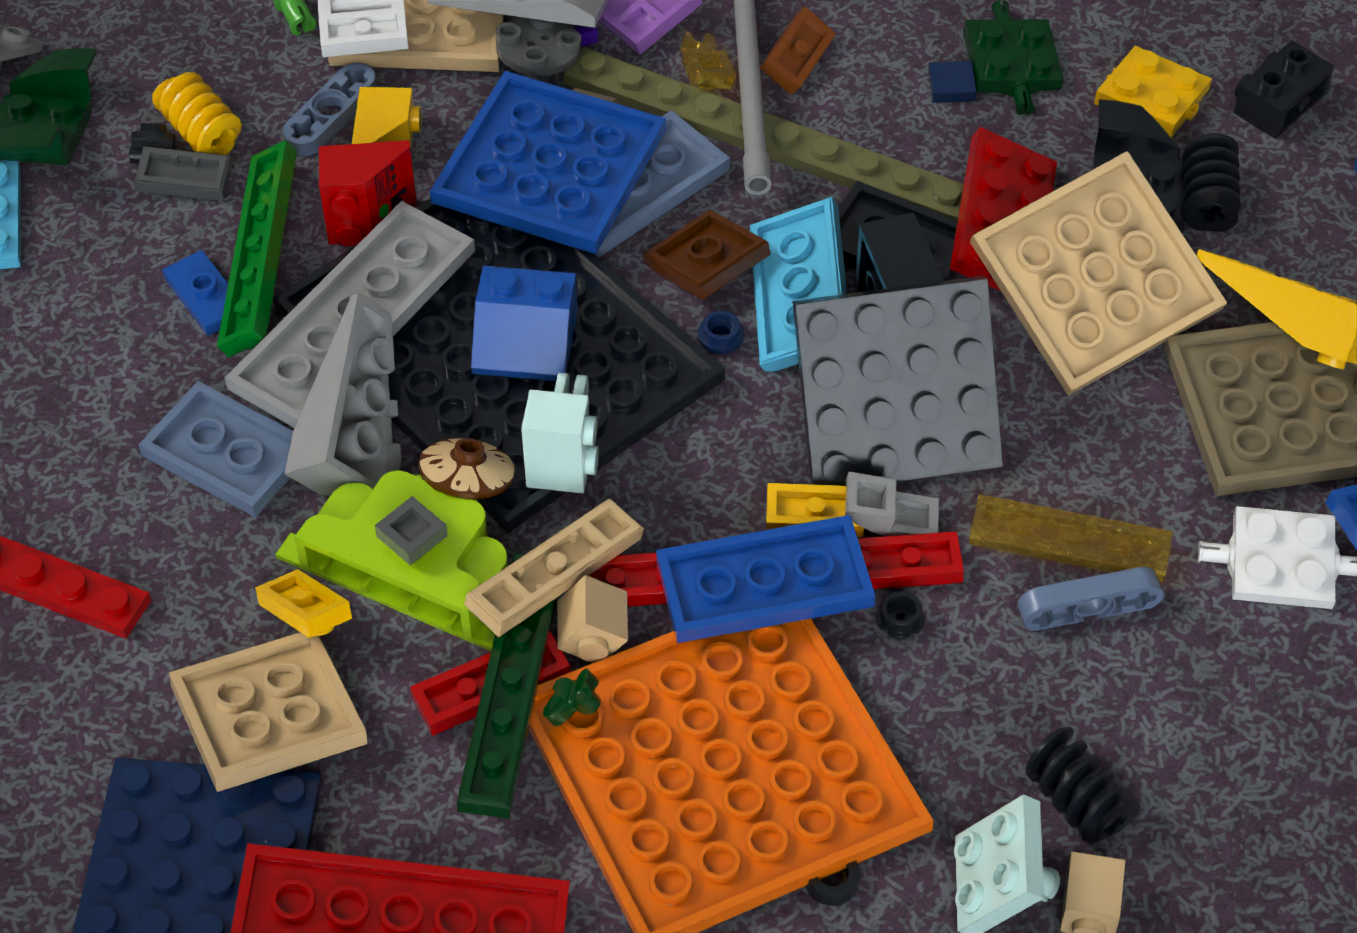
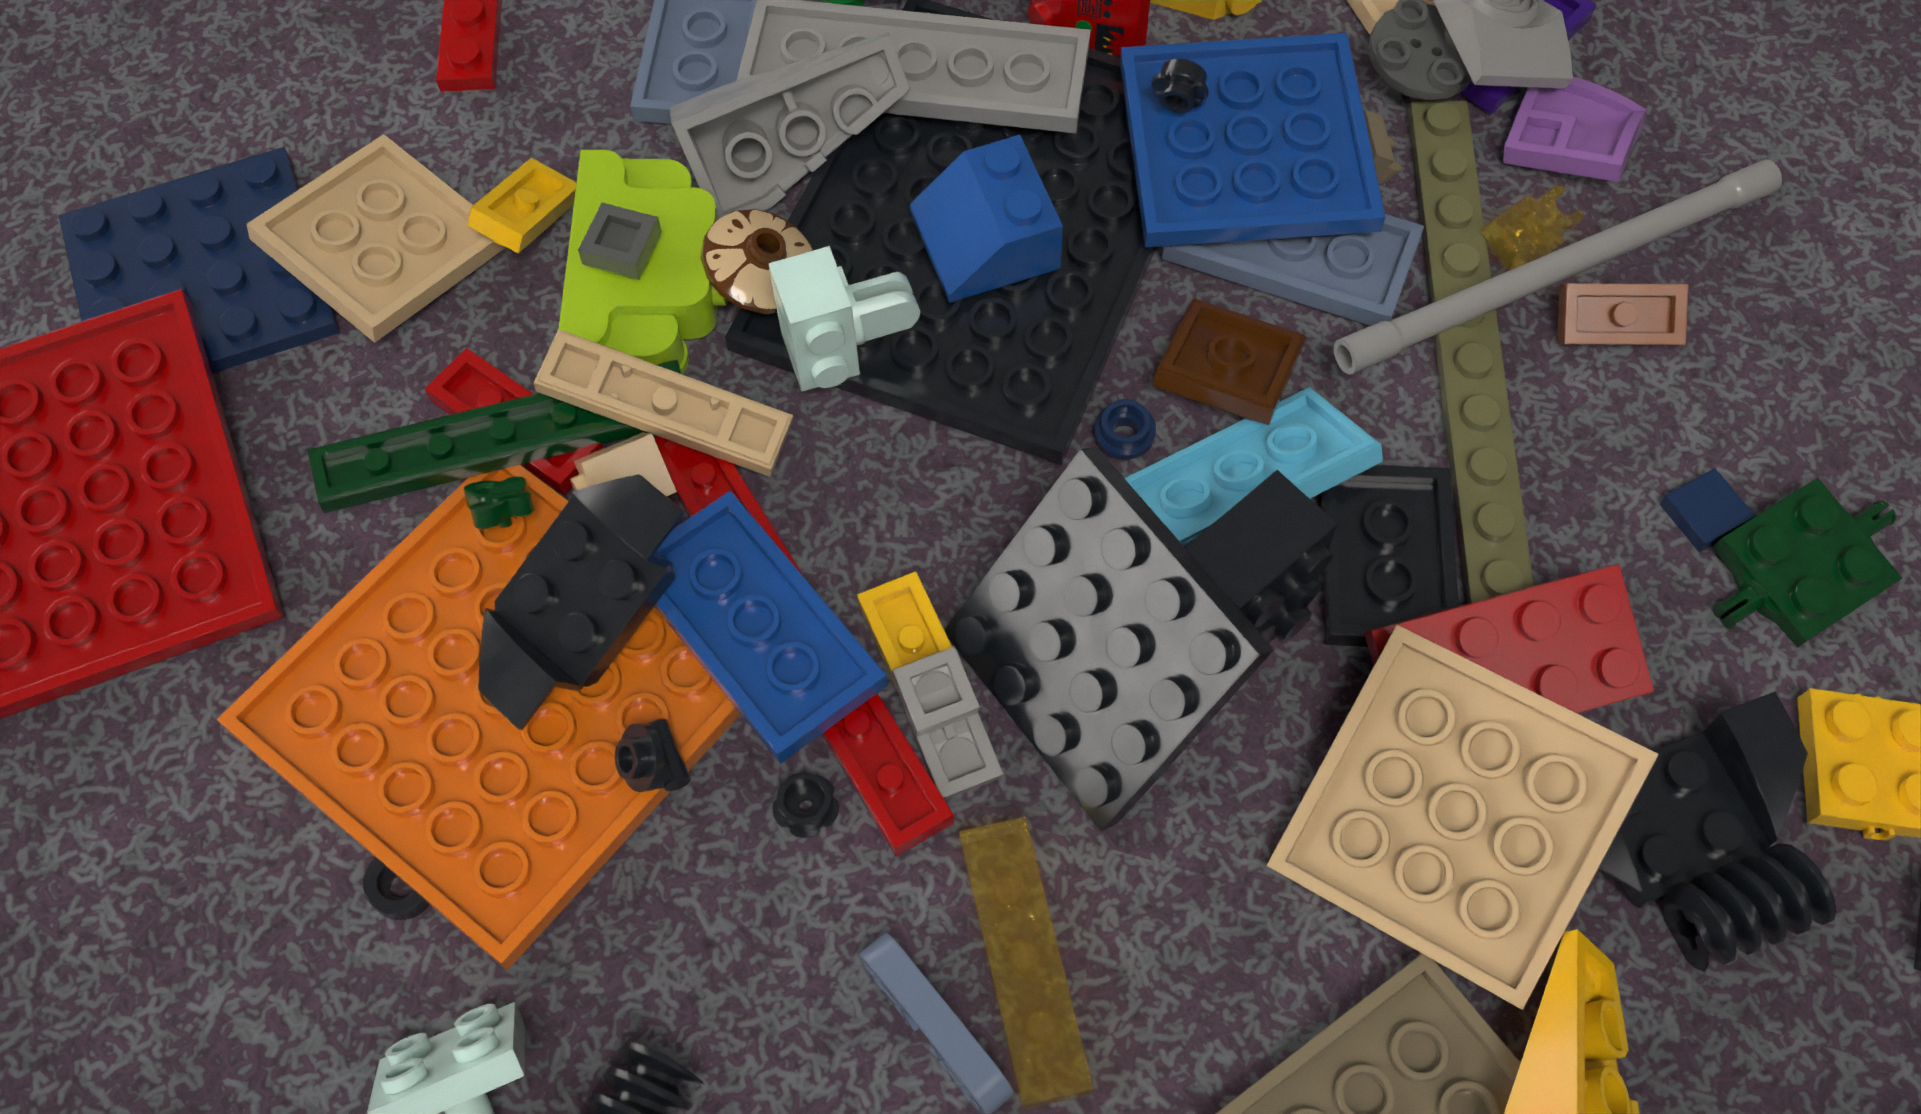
camera: 65 degrees right, 10 degrees up
(496, 168) = (1180, 85): none -> black plate
(688, 658) = (577, 596): none -> black piece
(832, 675) = (650, 758): none -> black plate

